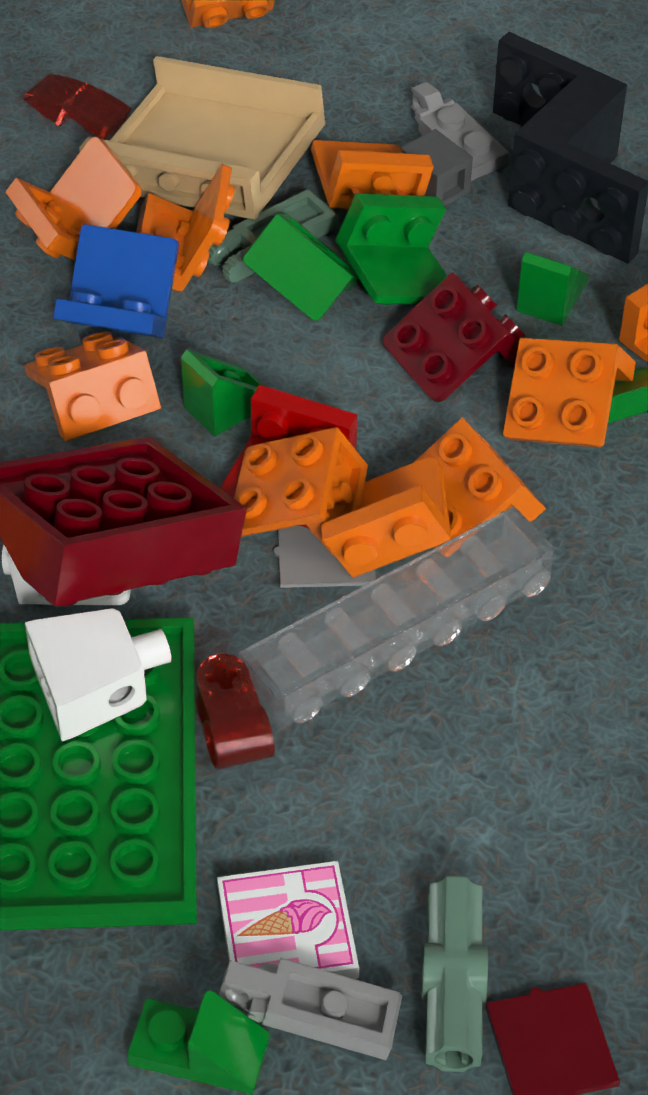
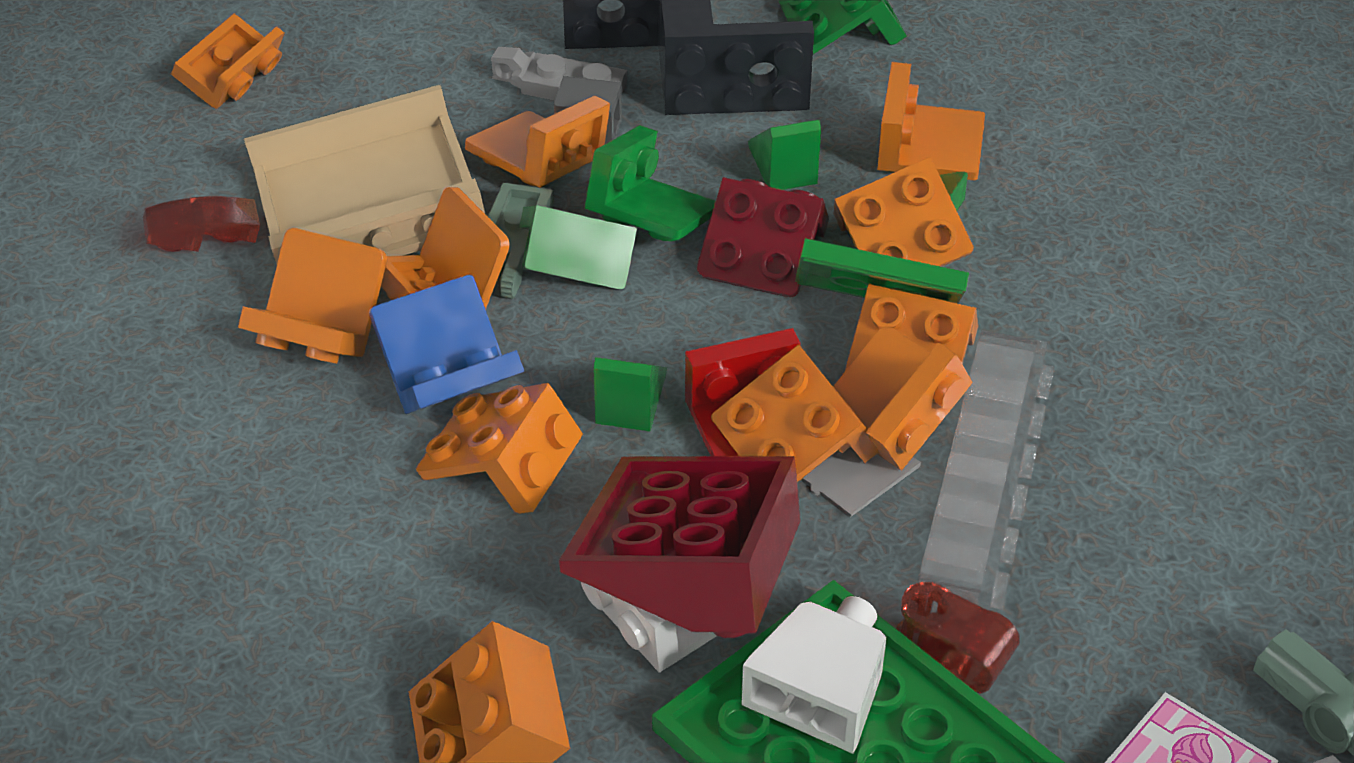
camera: 40 degrees left, 5 degrees down
(480, 419) = (851, 270): none -> green tile

